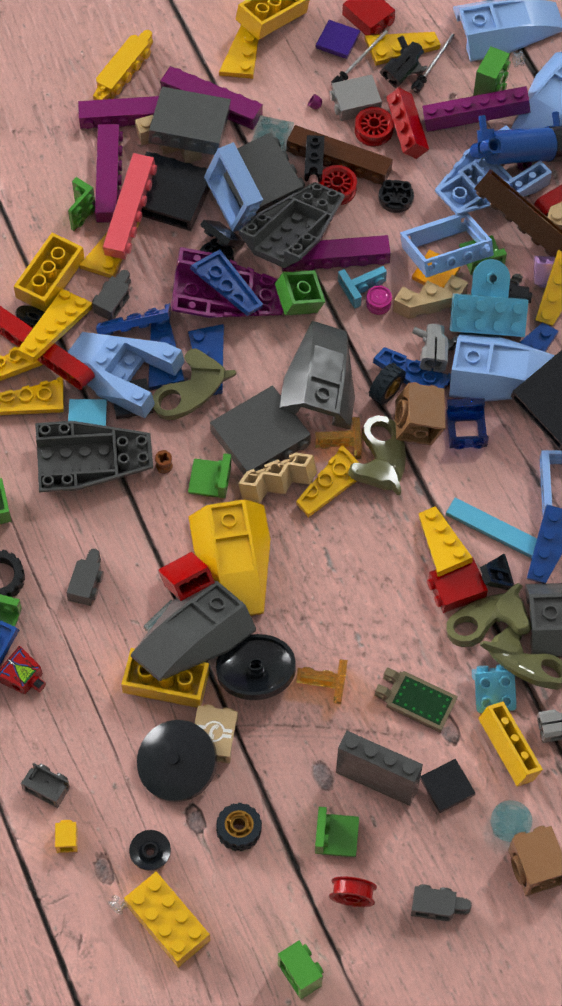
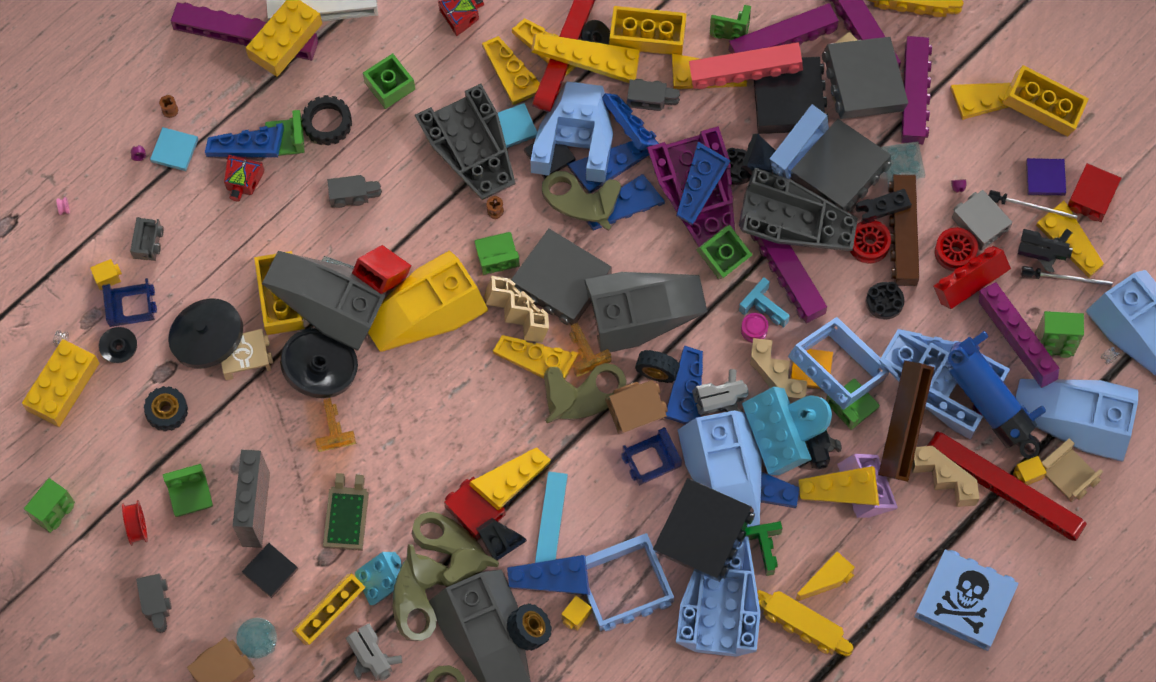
camera: 70 degrees right, 5 degrees up
(102, 842) = (114, 306): none -> clear blue window

